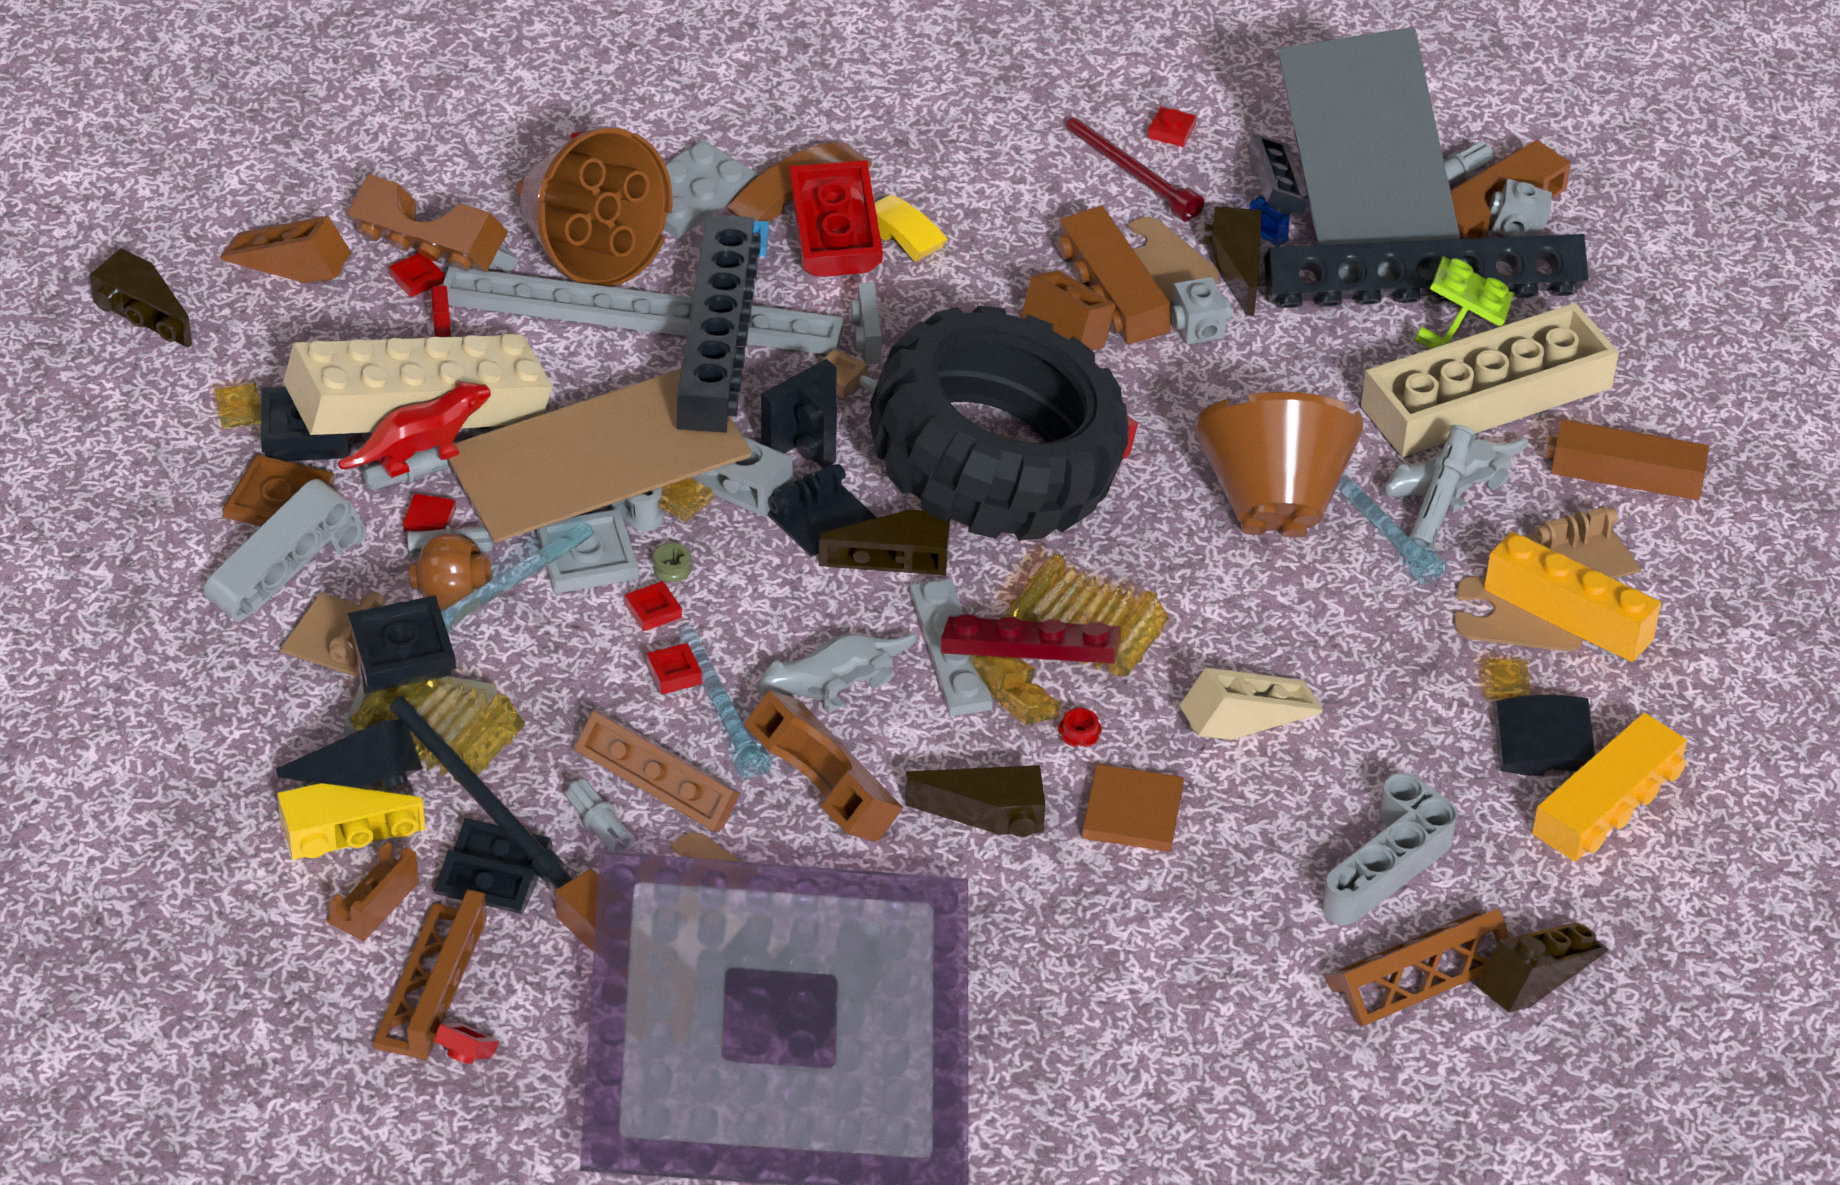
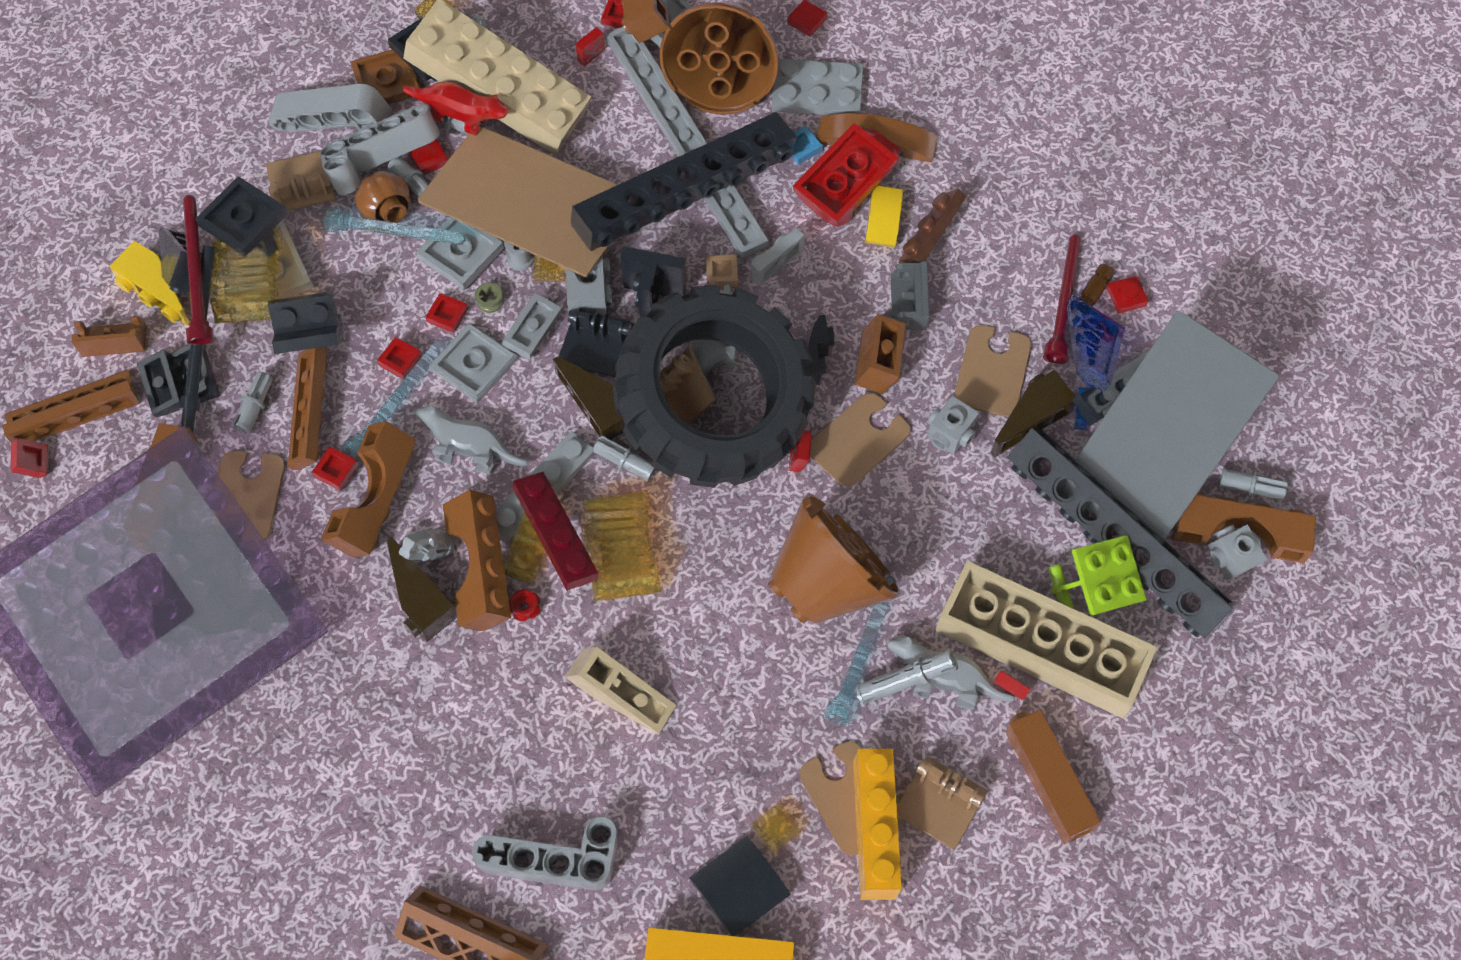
camera: 55 degrees right, 20 degrees up
(374, 544) = (375, 145): none -> light grey beam
(488, 774) = (199, 330): none -> dark red piece
(561, 703) = (304, 322): none -> black bracket
(740, 618) = (473, 362): none -> light grey tile
(749, 545) = (532, 326): none -> light grey plate
(760, 790) = (335, 468): none -> red plate
(941, 752) = (427, 545): none -> light grey hinge
(949, 707) = (483, 596): none -> dark orange arch
(958, 202) = (932, 226): none -> copper plate
(988, 560) = (624, 458): none -> light grey axle
(1015, 256) = (910, 295): none -> dark grey hinge
(1114, 271) = (944, 356): dark orange brick -> none
(1133, 808) = (482, 679): dark orange tile -> none
(1143, 143) = (1097, 284): none -> reddish brown axle
(1151, 395) = (852, 446): none -> medium nougat piece
(1220, 161) = (1094, 343): none -> clear blue wing
(1514, 428) = (1012, 685): none -> red tile

